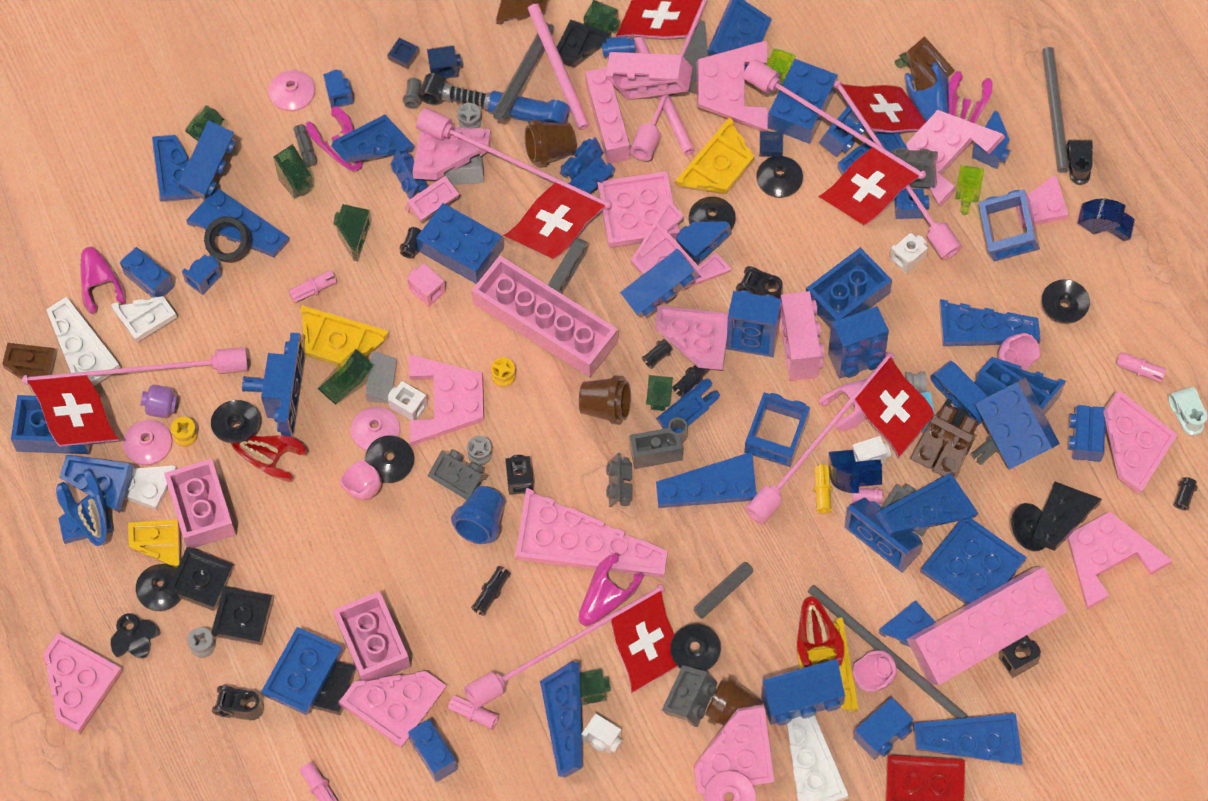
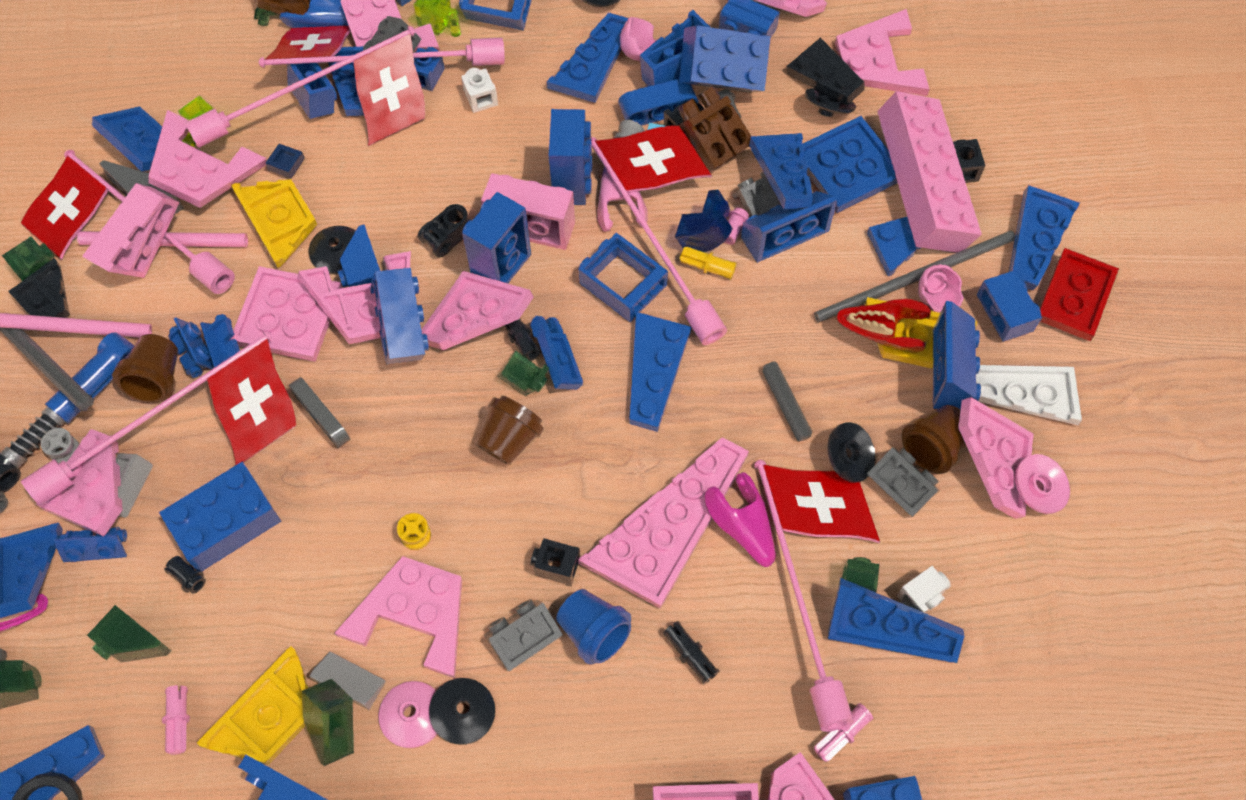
camera: 70 degrees left, 0 degrees up
(361, 481) = (480, 756): bright pink hair -> none
(407, 393) = (398, 647): white brick -> none
(426, 284) = (251, 577): bright pink brick -> none
(430, 199) = (145, 525): bright pink panel -> none
(479, 444) = (500, 590): light grey wheel -> none
(545, 316) = (368, 456): bright pink brick -> none
(607, 116) = (152, 298): bright pink brick -> none
(618, 44) = (72, 262): blue brick -> none
(619, 470) = (600, 455): dark grey hinge -> none
(657, 353) = (471, 353): black pin -> none
(658, 445) = (592, 395): dark grey hinge -> none
(776, 184) = (327, 178): black dish -> none
(793, 117) = (263, 126): blue brick -> none
(849, 287) = (496, 145): blue brick -> none
(871, 450) = (689, 199): white brick -> none

